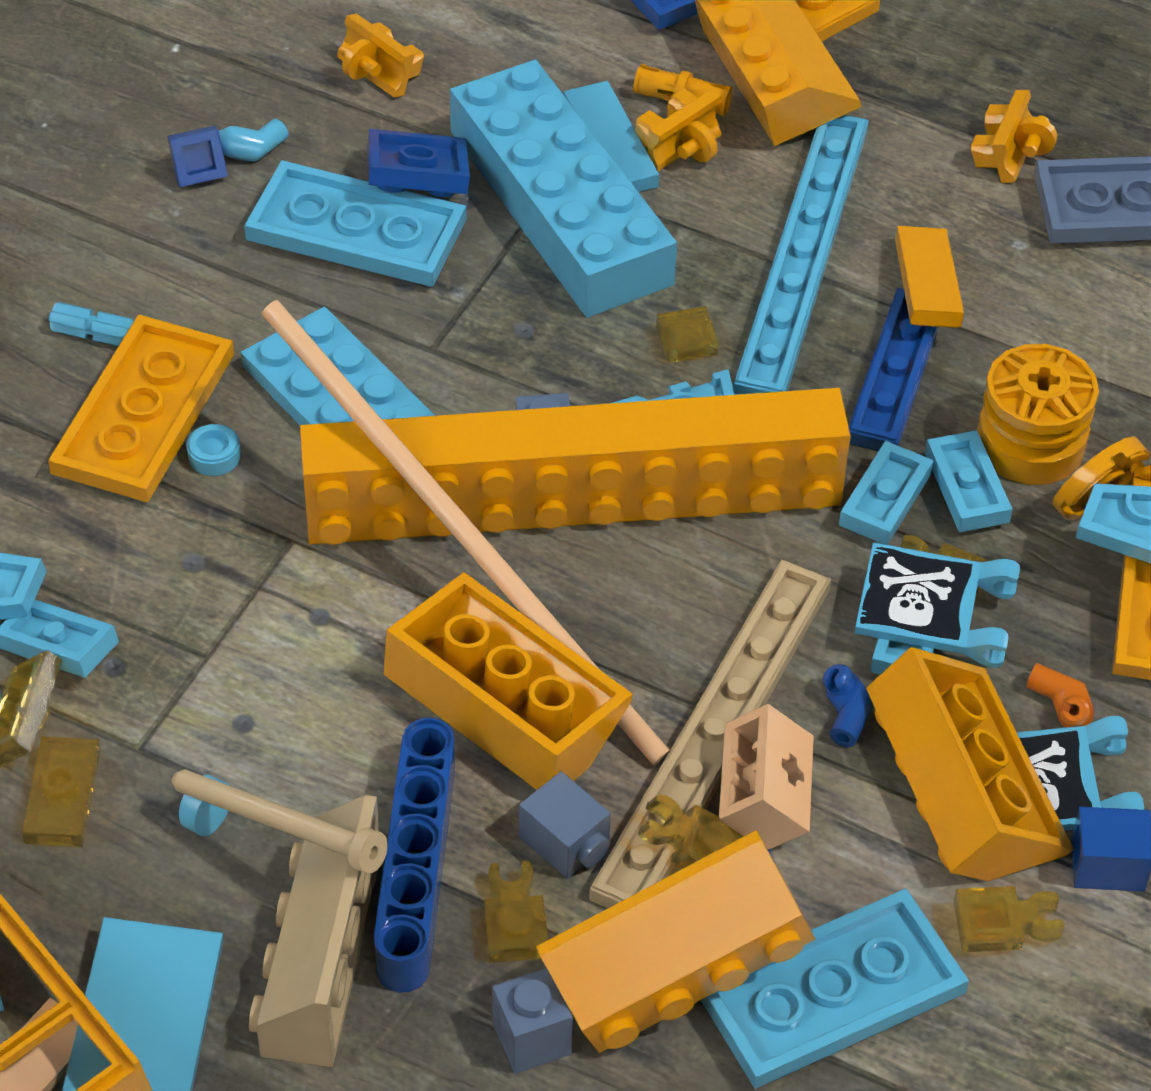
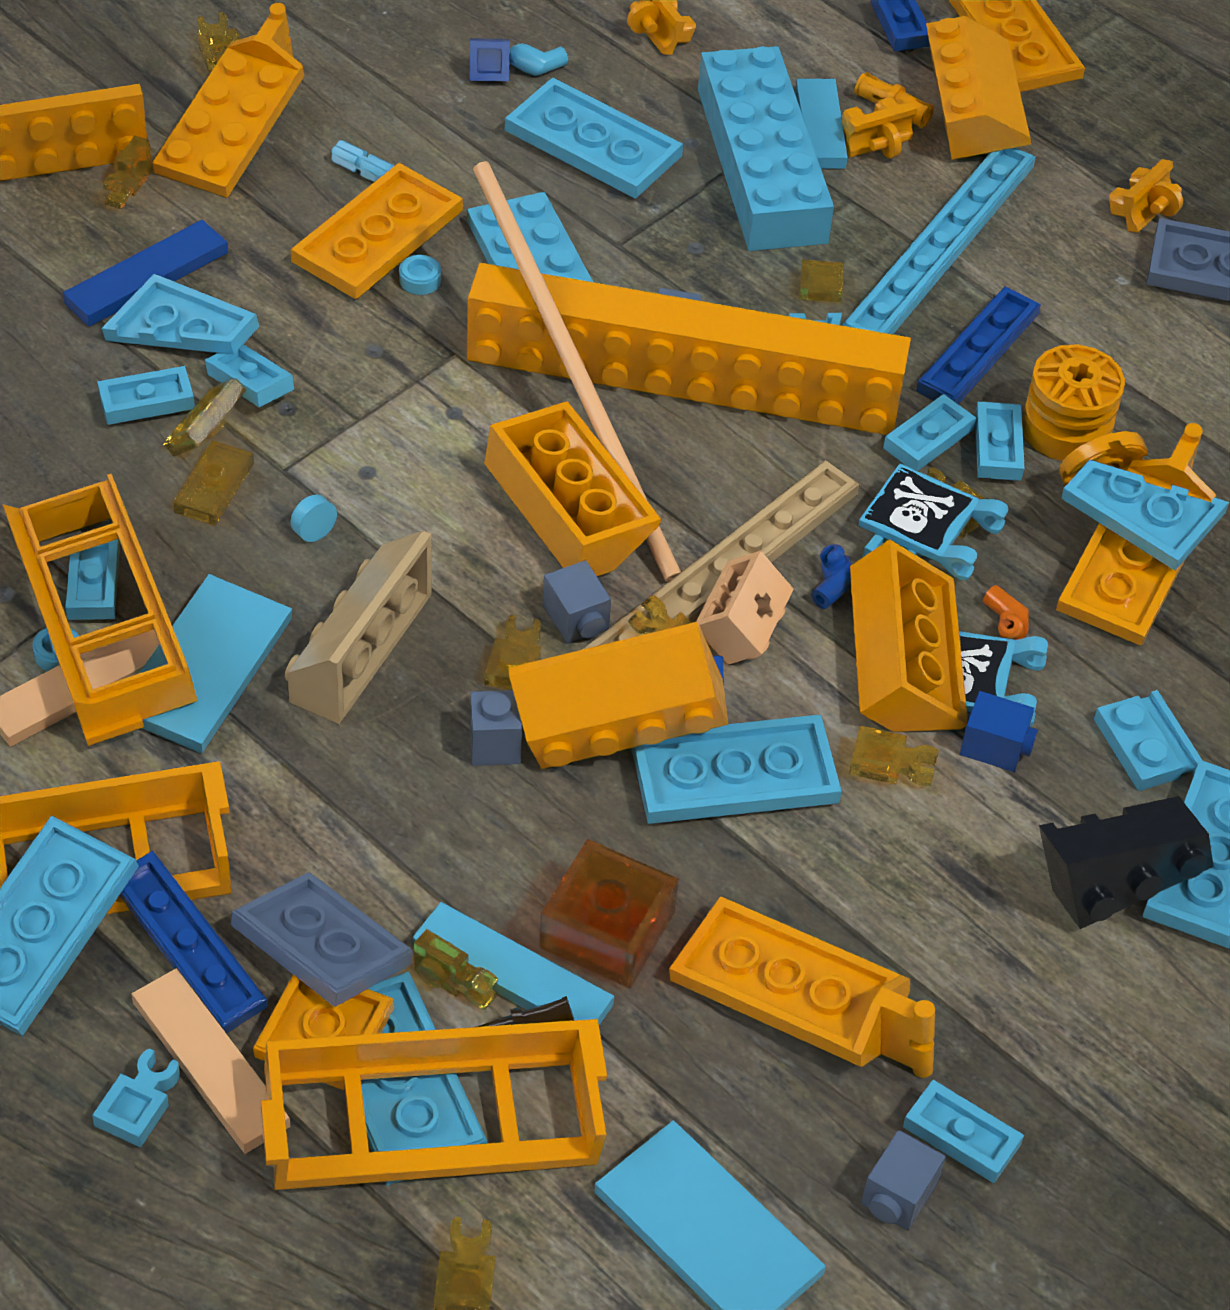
camera: 15 degrees right, 0 degrees up
(364, 849) = (404, 564): tan bar -> none
(415, 875) = (455, 592): blue beam -> none
(417, 162) = (656, 102): blue plate -> none
(929, 277) = (1031, 283): light orange tile -> none

